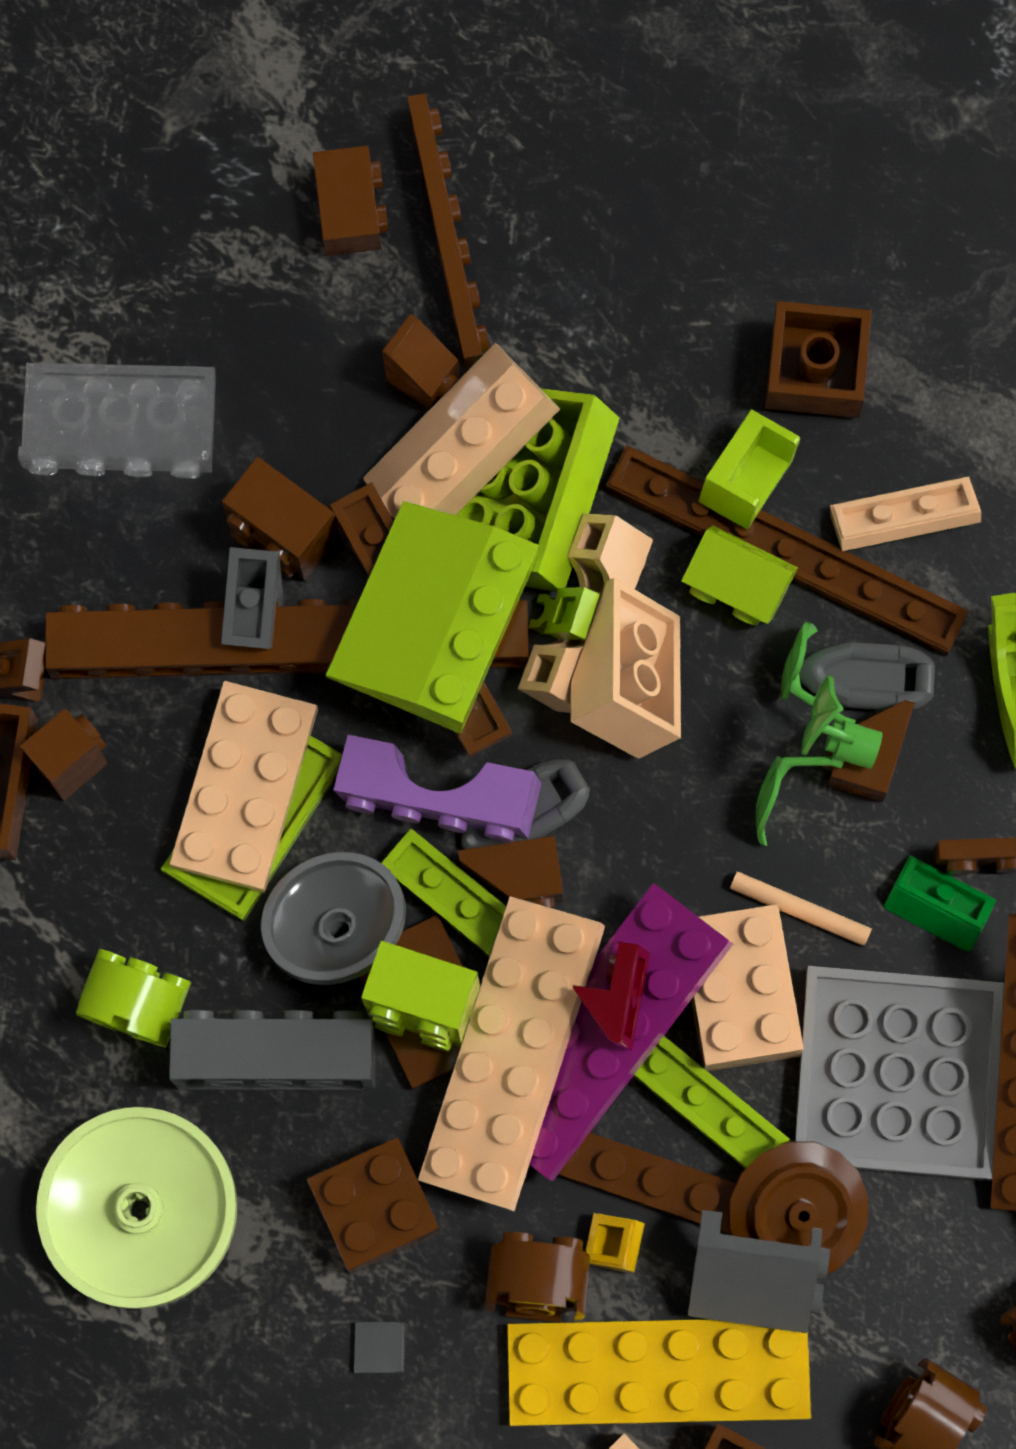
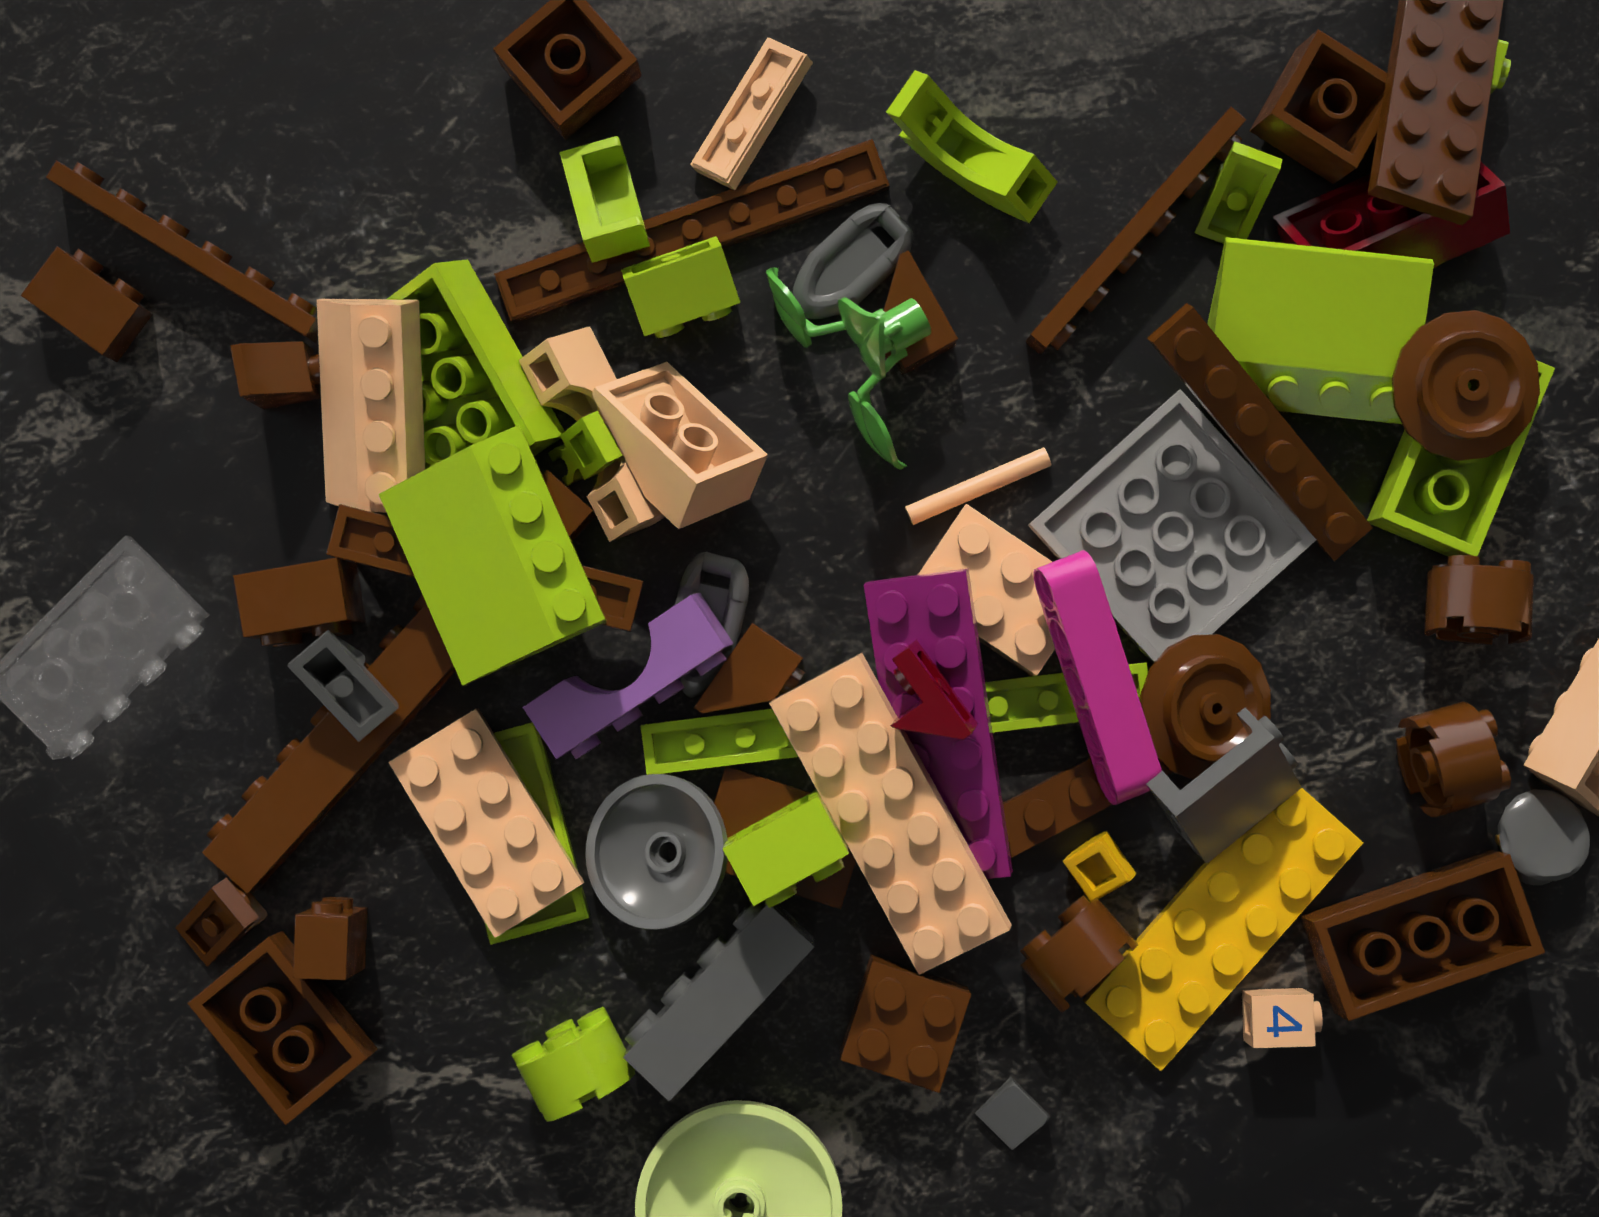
camera: 50 degrees left, 10 degrees up
(744, 1104) = (1097, 676): none -> dark pink beam
(939, 904) = (1072, 377): green slope -> none

